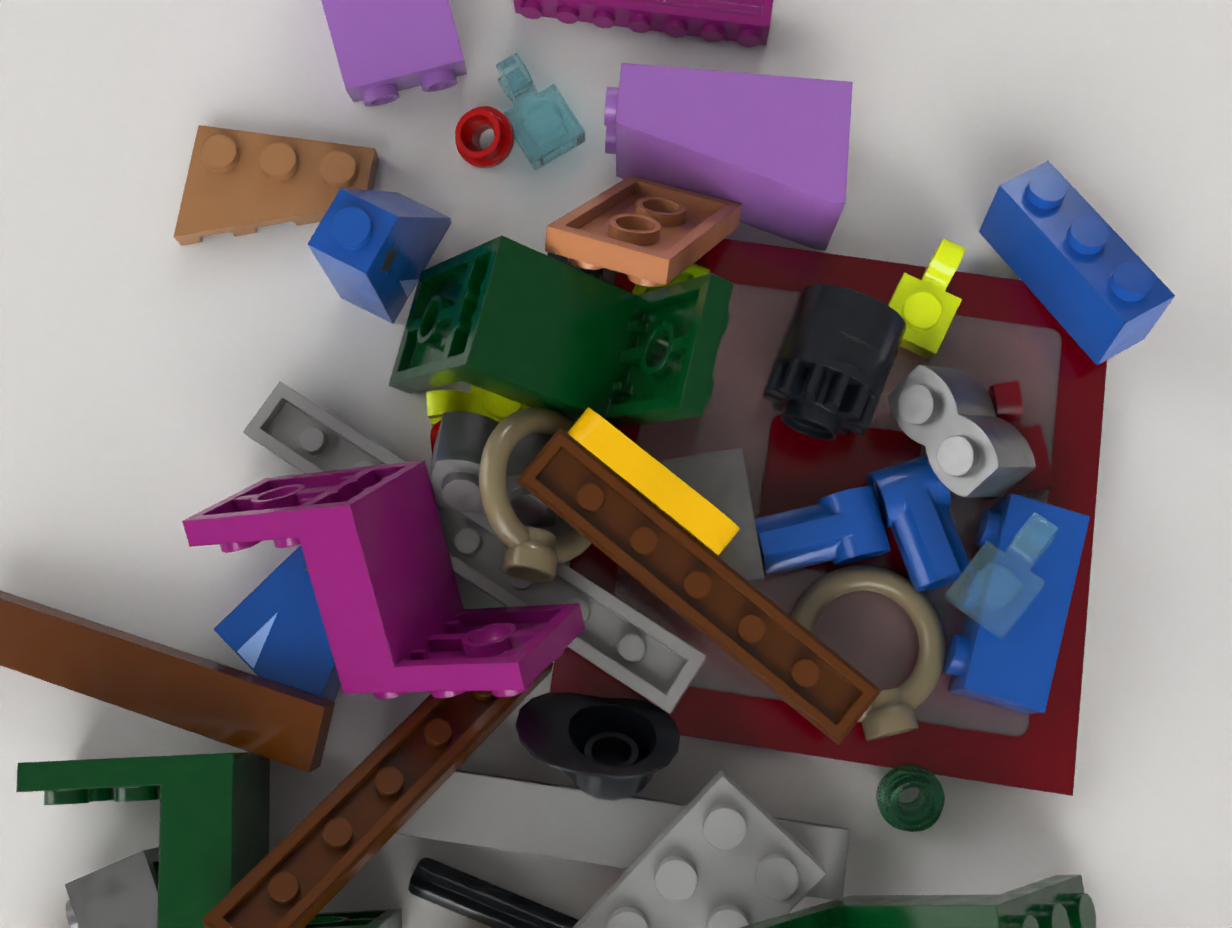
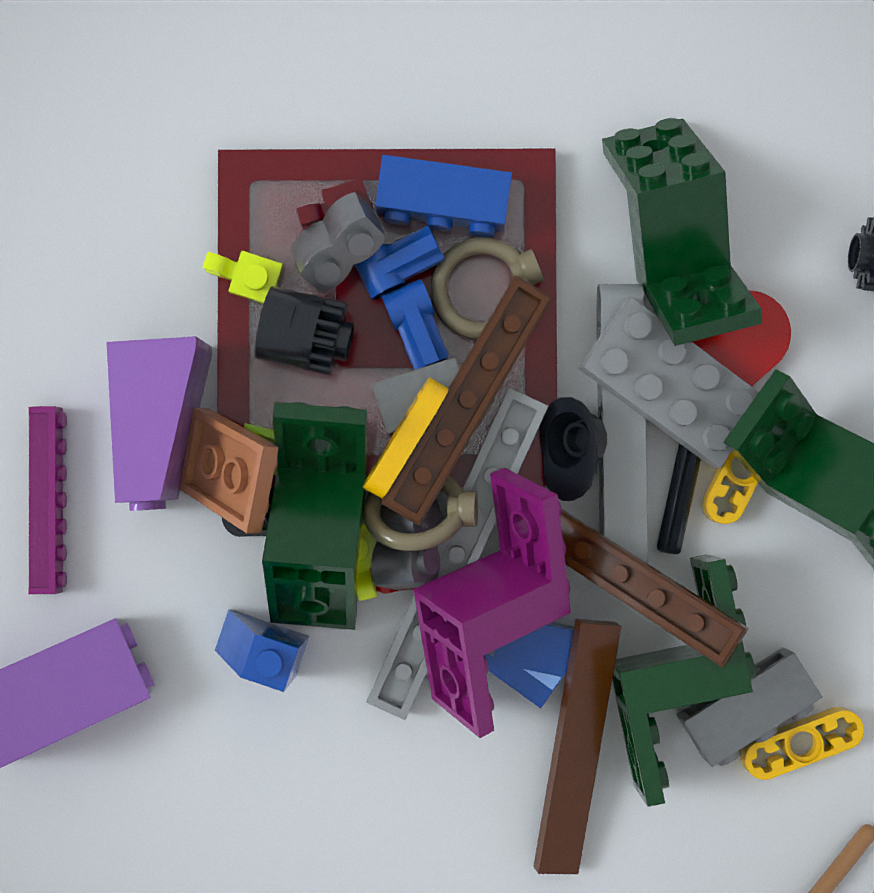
camera: 100 degrees left, 10 degrees up
(265, 180) = (219, 742): medium nougat wing -> none
(469, 132) = (169, 607): red plate -> none
(540, 119) = (146, 559): clear light blue plate -> none
(915, 815) = (581, 243): clear green plate -> none
(998, 584) = (437, 209): clear light blue plate -> none
(1074, 262) = (204, 178): blue brick -> none

